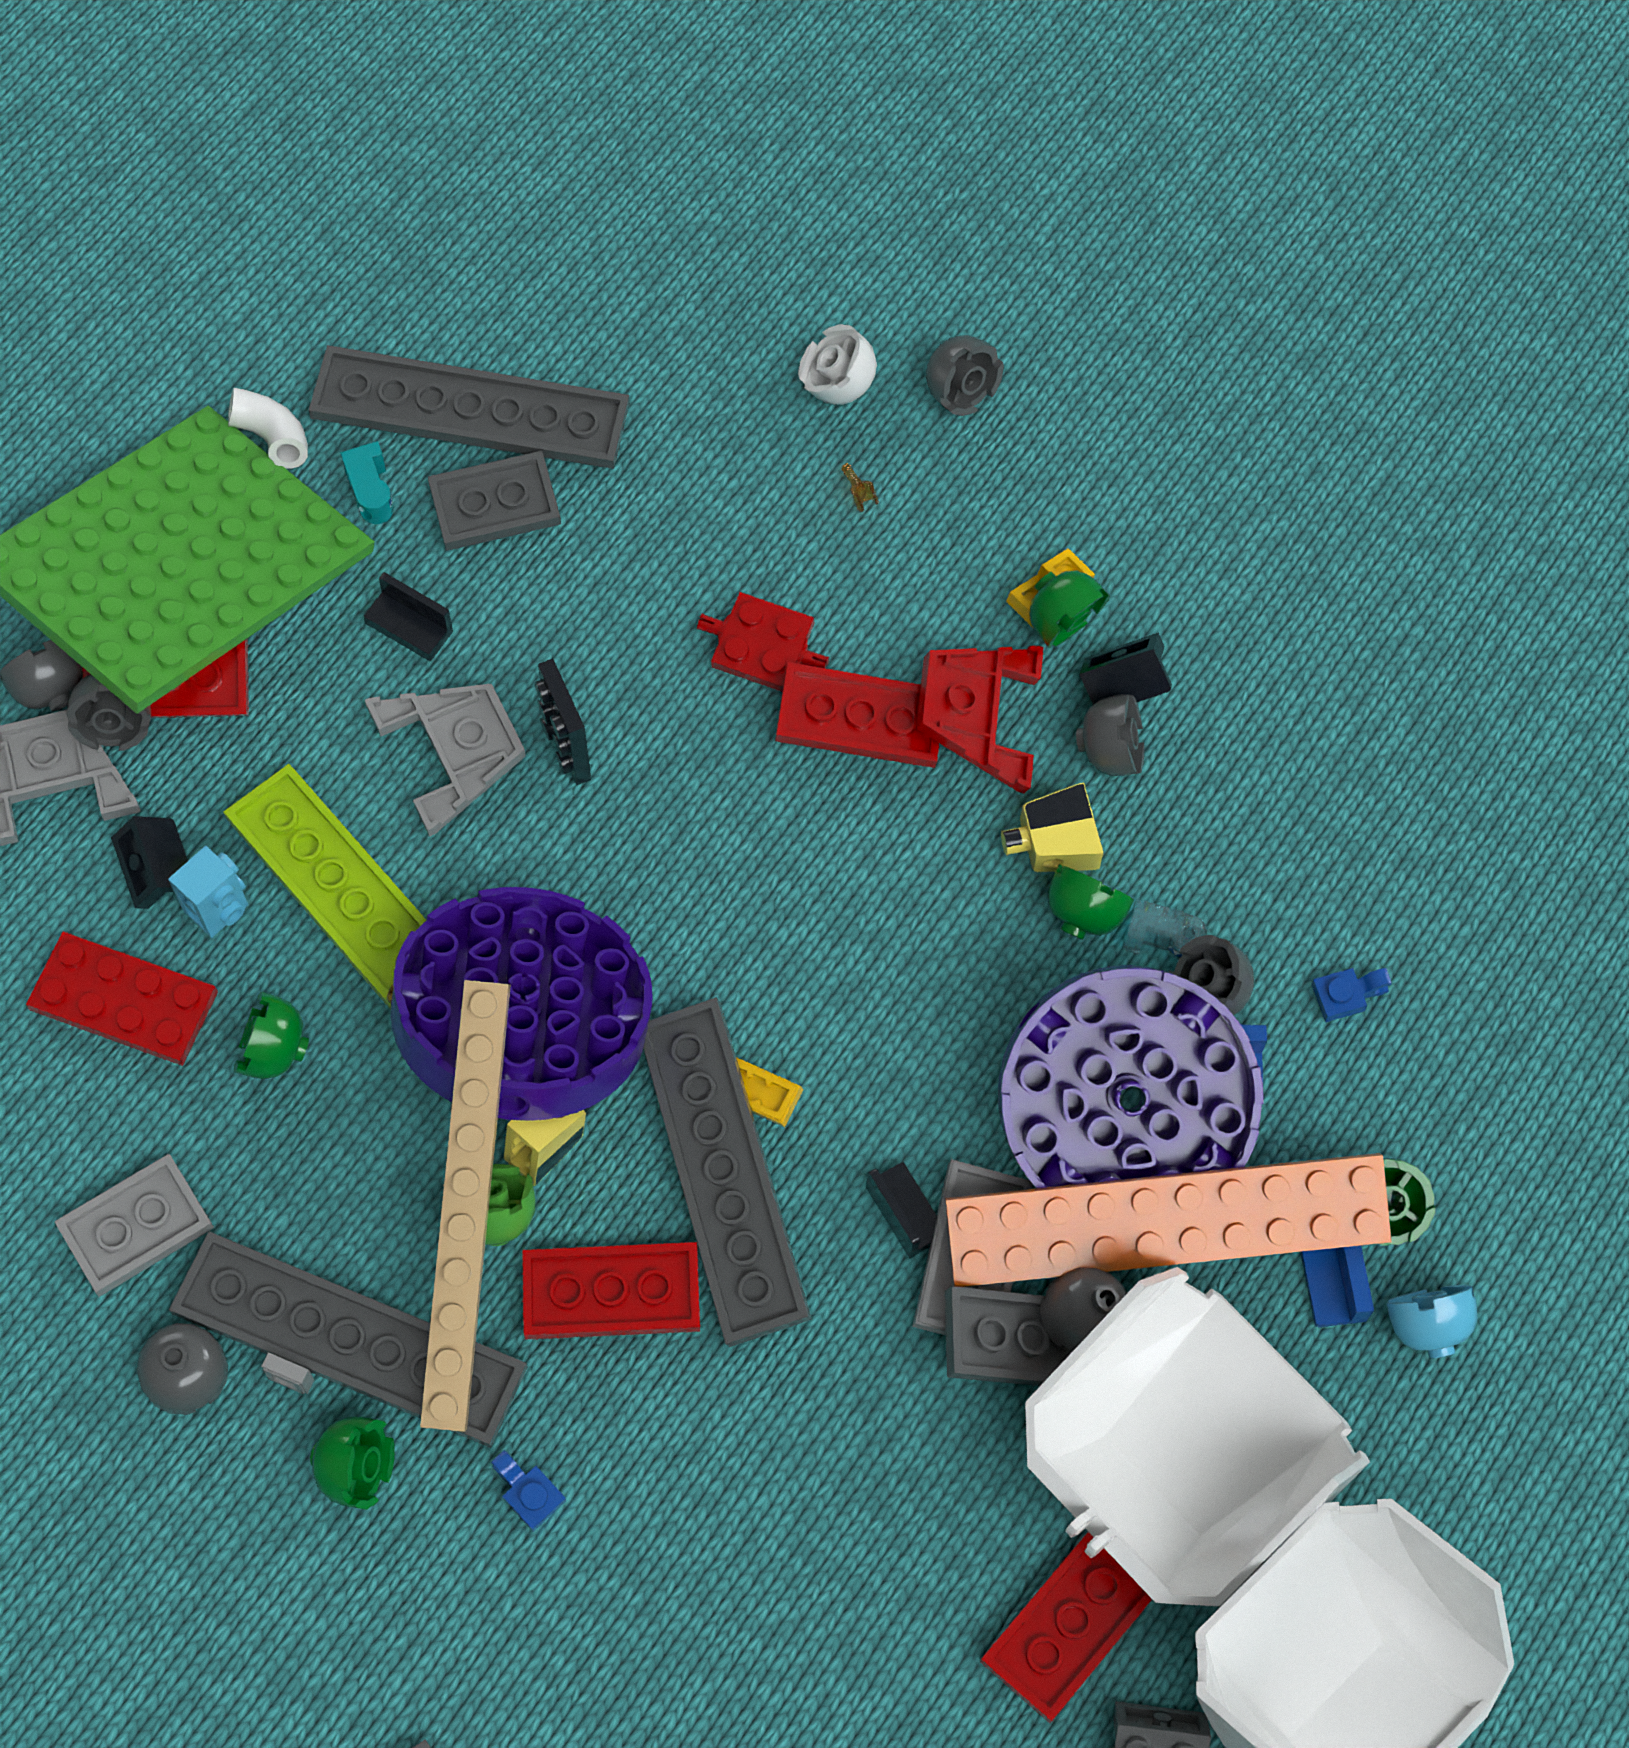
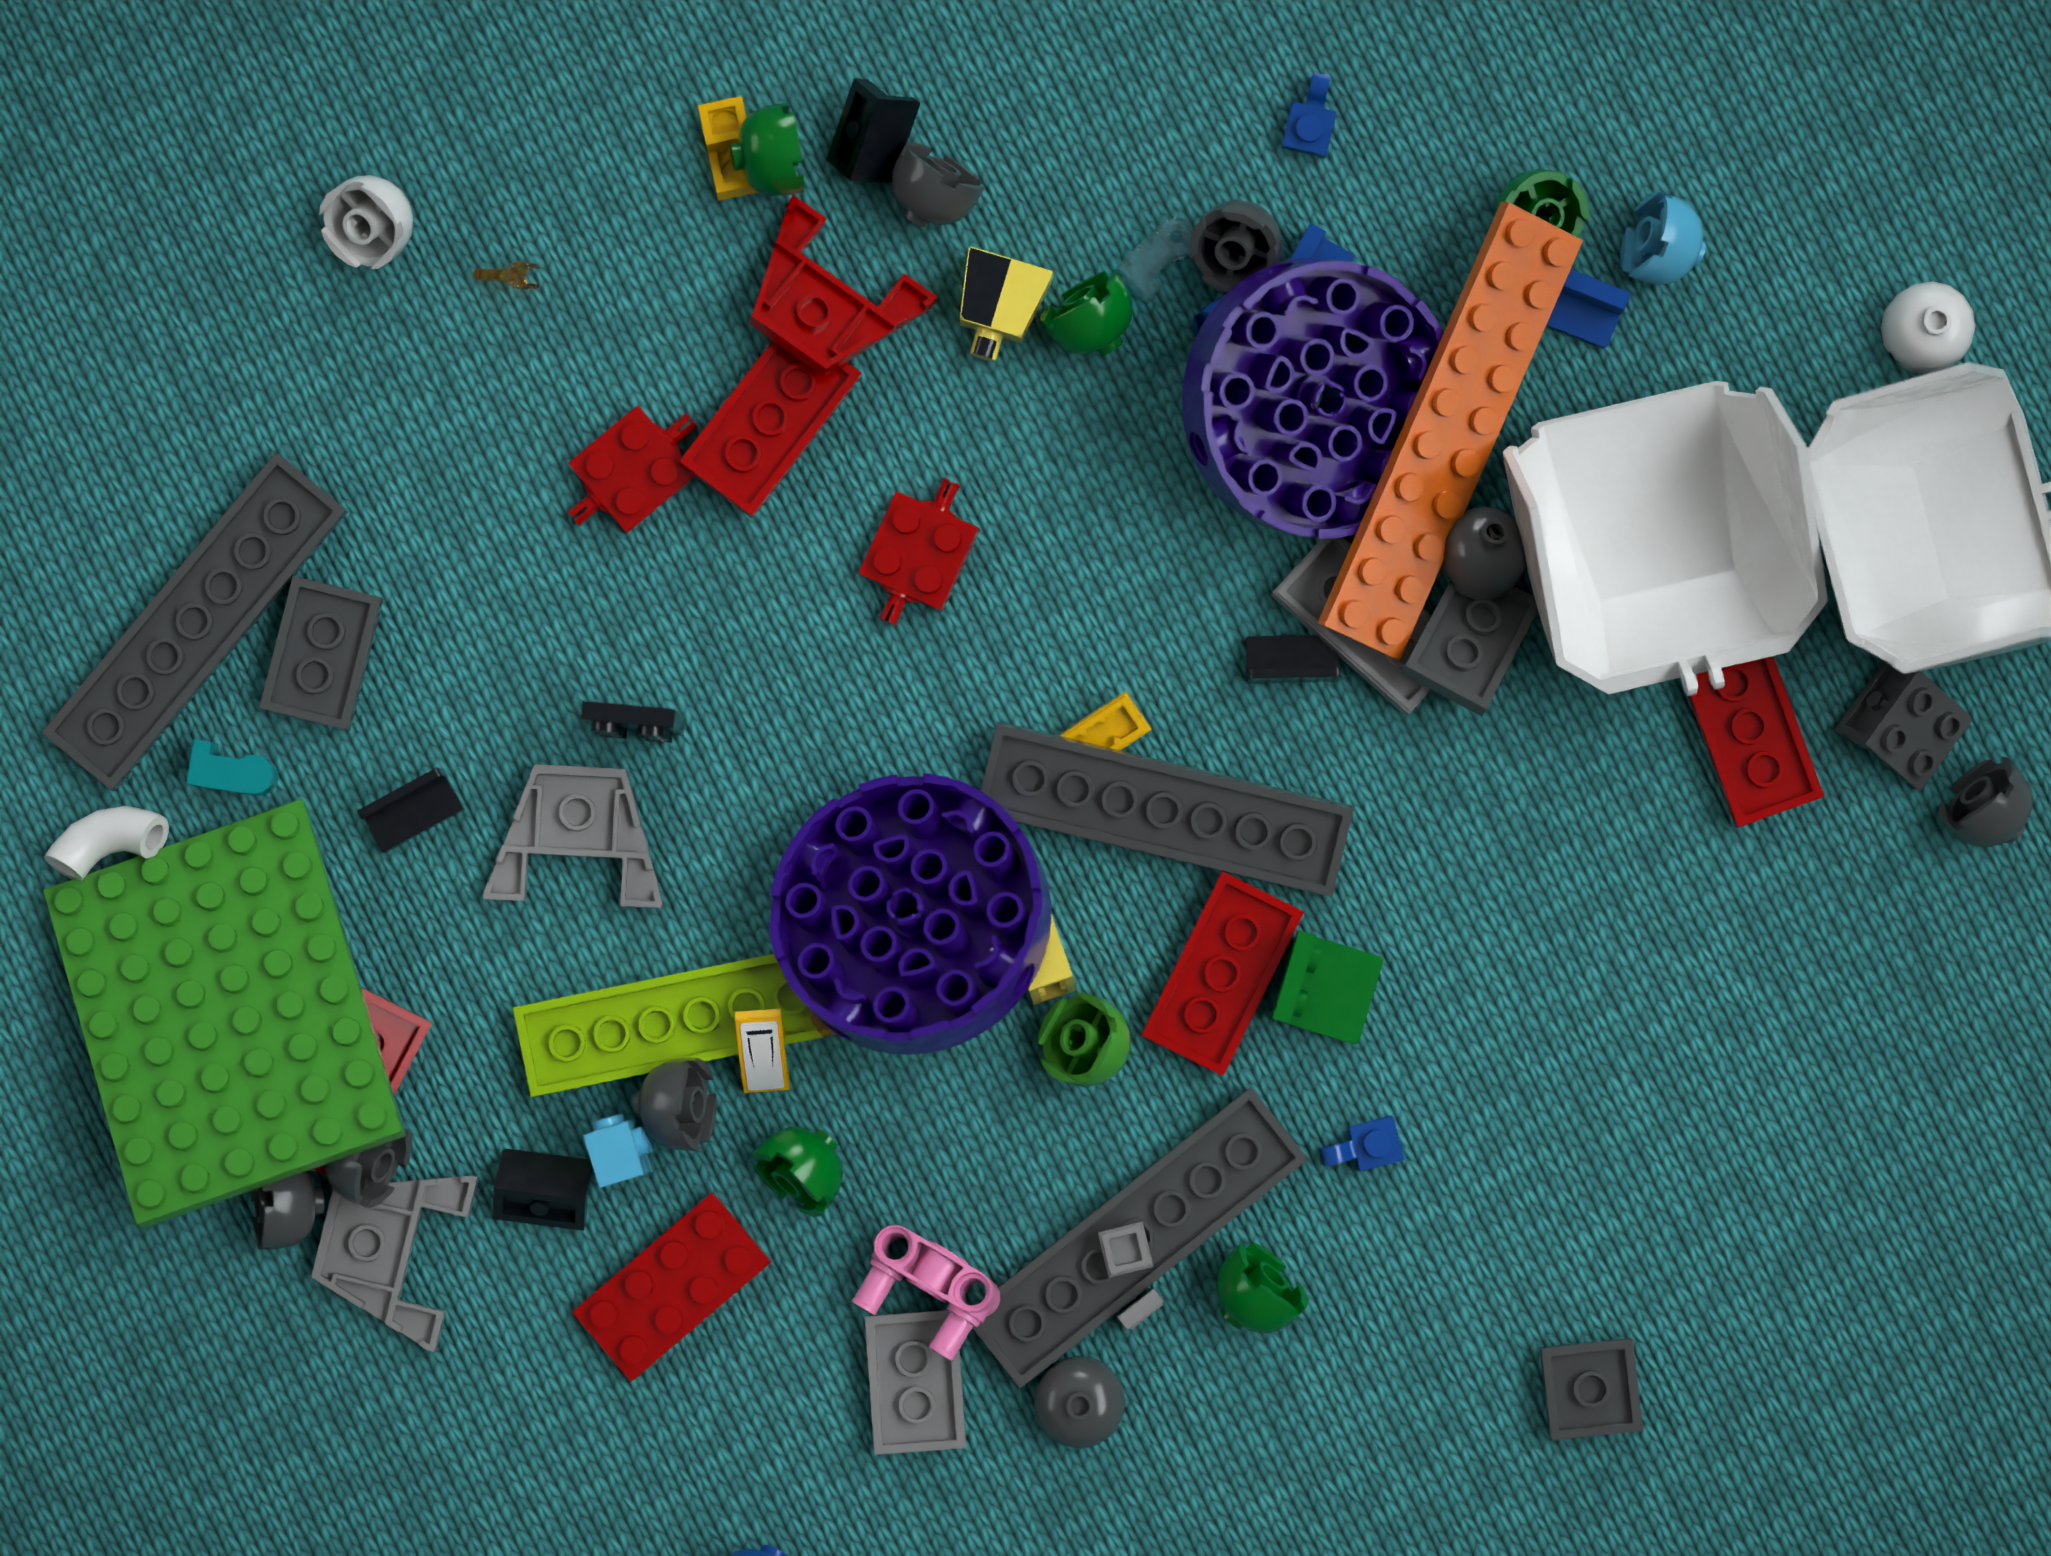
camera: 55 degrees left, 20 degrees up
(232, 1188) = (934, 1272): none -> bright pink piece
(274, 921) = (676, 1104): none -> dark grey cylinder
(331, 1330) = (1125, 1249): none -> light grey tile
(349, 958) = (762, 1050): none -> slope
(465, 1206) = (1093, 1068): tan plate -> none
(645, 1379) = (1327, 988): none -> green bracket
(822, 878) = (919, 551): none -> red plate
(963, 373) = (442, 98): dark grey cylinder -> none
(1524, 1582) = (1928, 327): none -> white cylinder

